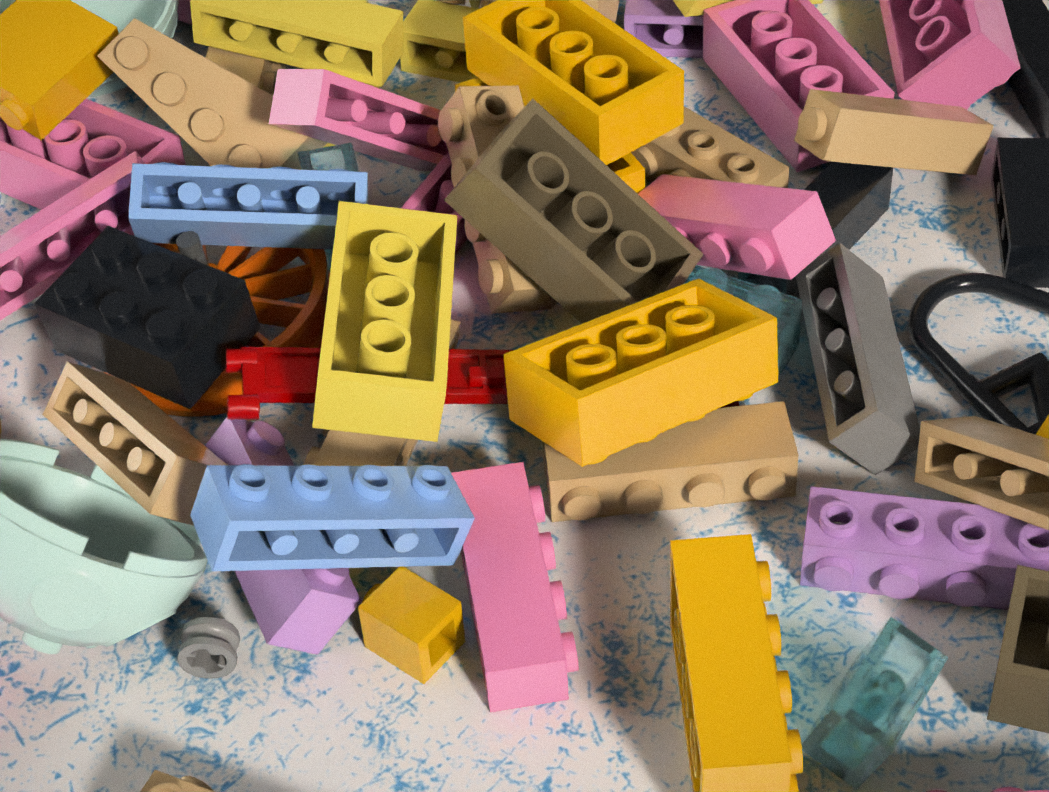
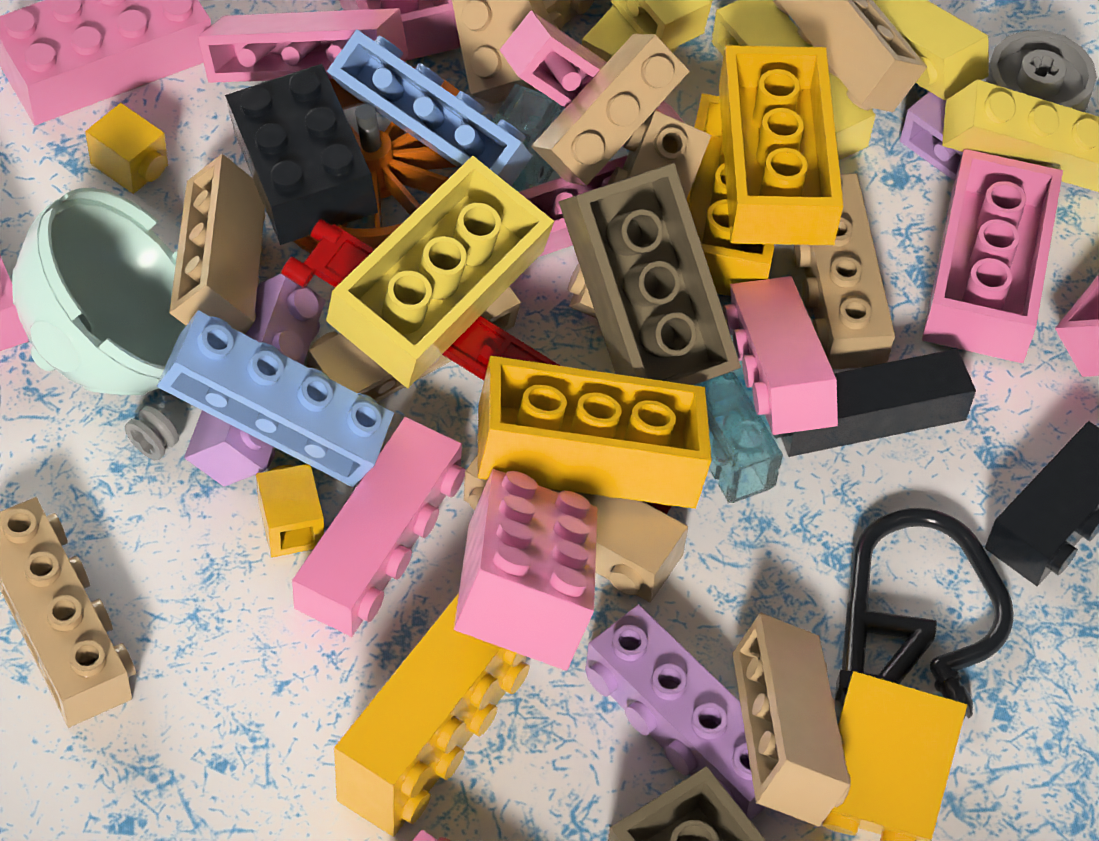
camera: 30 degrees right, 10 degrees up
(415, 111) = (610, 108): none -> tan brick
(725, 493) = (529, 569): none -> bright pink brick
(857, 360) = (784, 528): light grey brick -> none
(874, 703) = (524, 787): clear light blue brick -> none
(892, 132) = (999, 361): tan brick -> none

